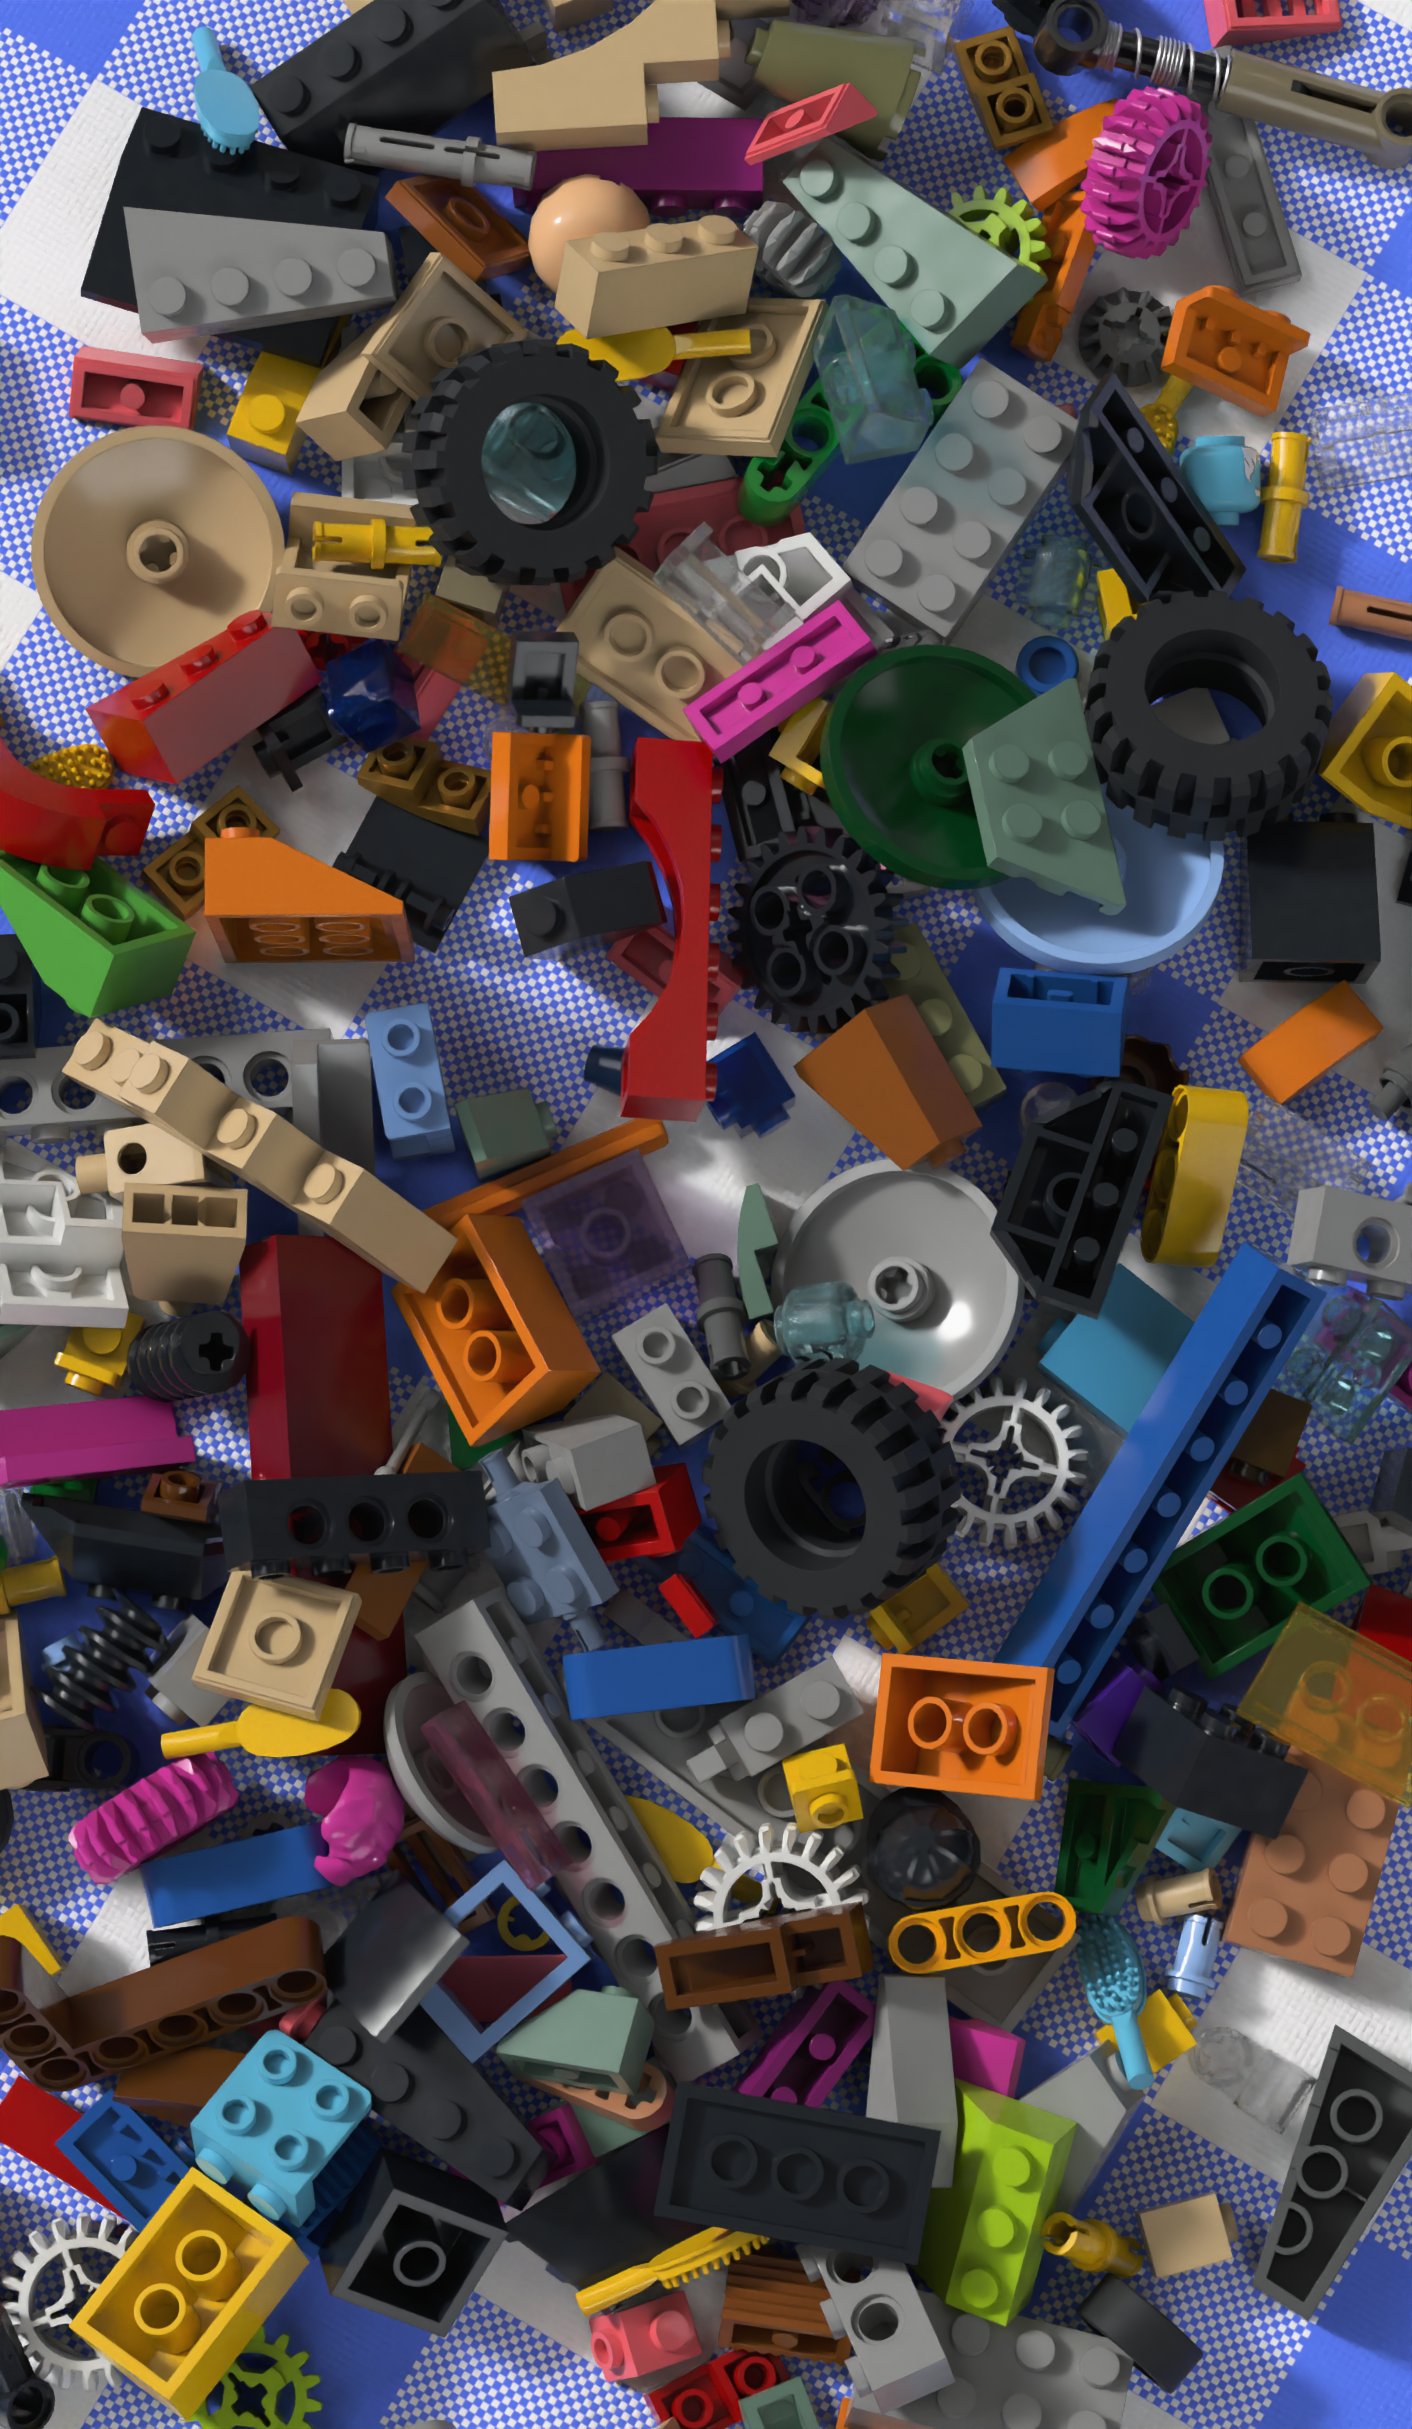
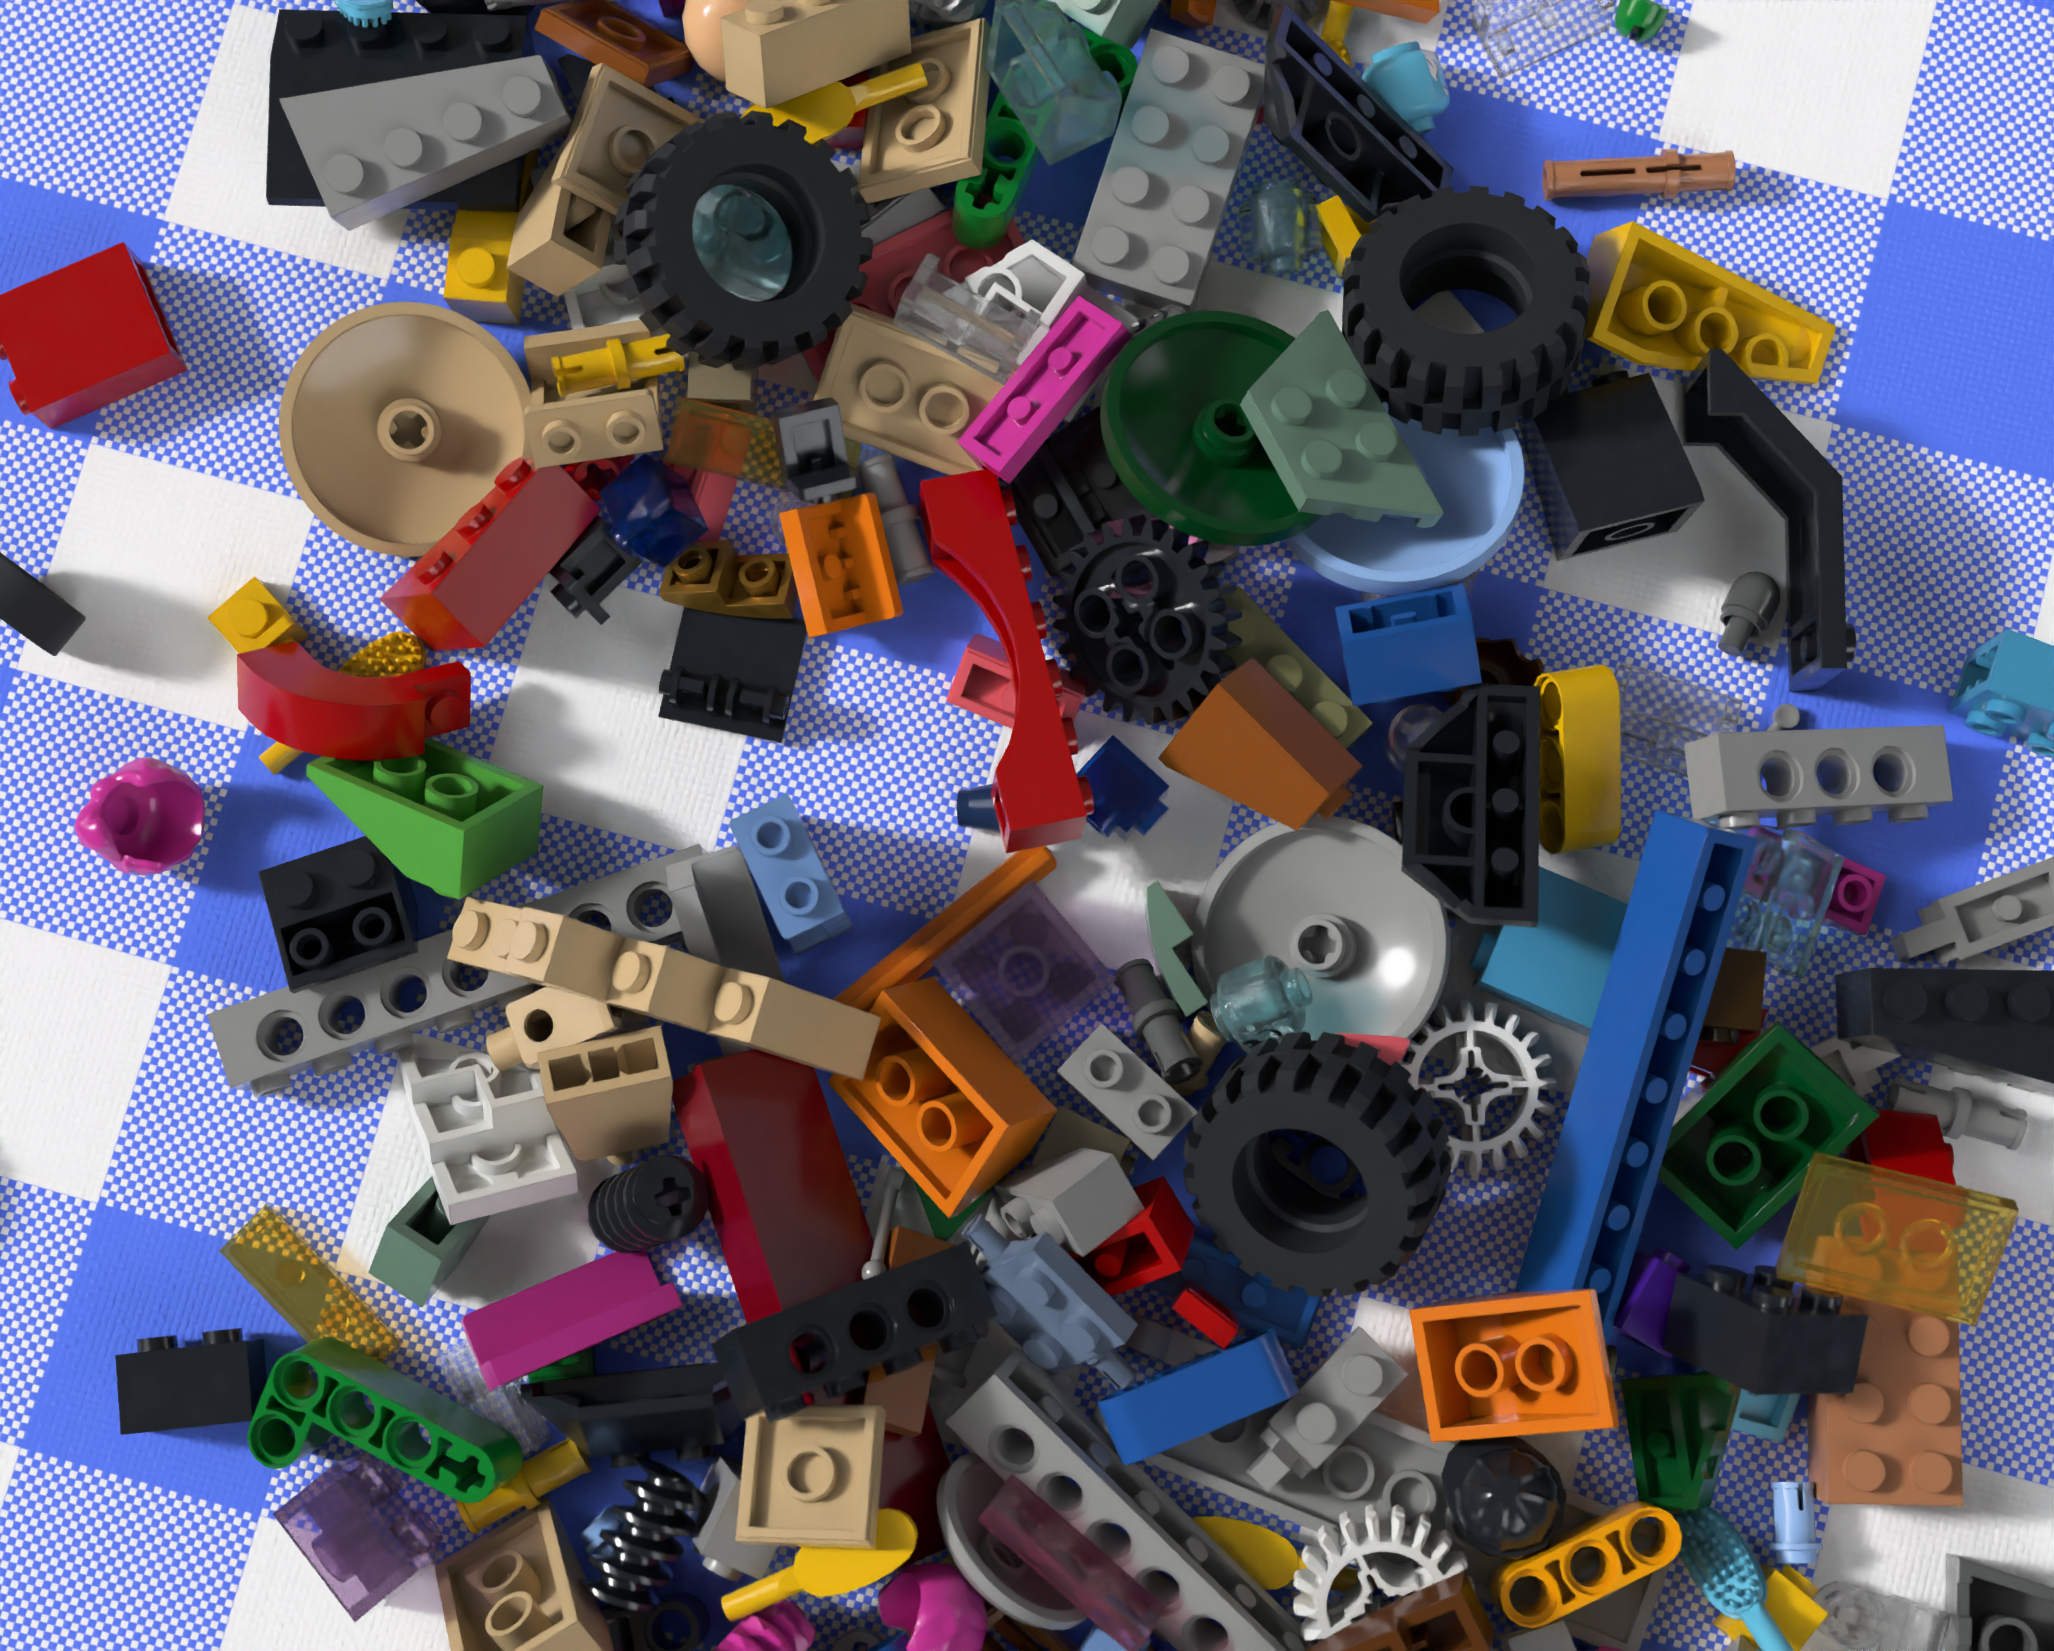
camera: 10 degrees left, 0 degrees up
(98, 1356) = (560, 1225): yellow bracket -> none
(134, 389) = (339, 282): coral slope -> none
(179, 871) = (539, 706): pearl gold slope -> none
(182, 1496) = (678, 1345): reddish brown slope -> none
(291, 908) = (627, 736): orange slope -> none
(505, 1131) = (897, 897): sand green slope -> none
(587, 911) = (917, 662): black slope -> none
(801, 744) = (1078, 444): yellow bracket -> none
(822, 1788) = (1390, 1463): yellow bracket -> none
(917, 1611) = (1434, 1260): yellow bracket -> none
(1046, 663) = (1290, 306): blue tile -> none
(1160, 1643) = (1678, 1224): black bracket -> none
(1178, 1895) = (1761, 1467): tan pin -> none
(1284, 497) = (1470, 91): yellow pin -> none
(1310, 1043) = (1647, 601): orange slope -> none

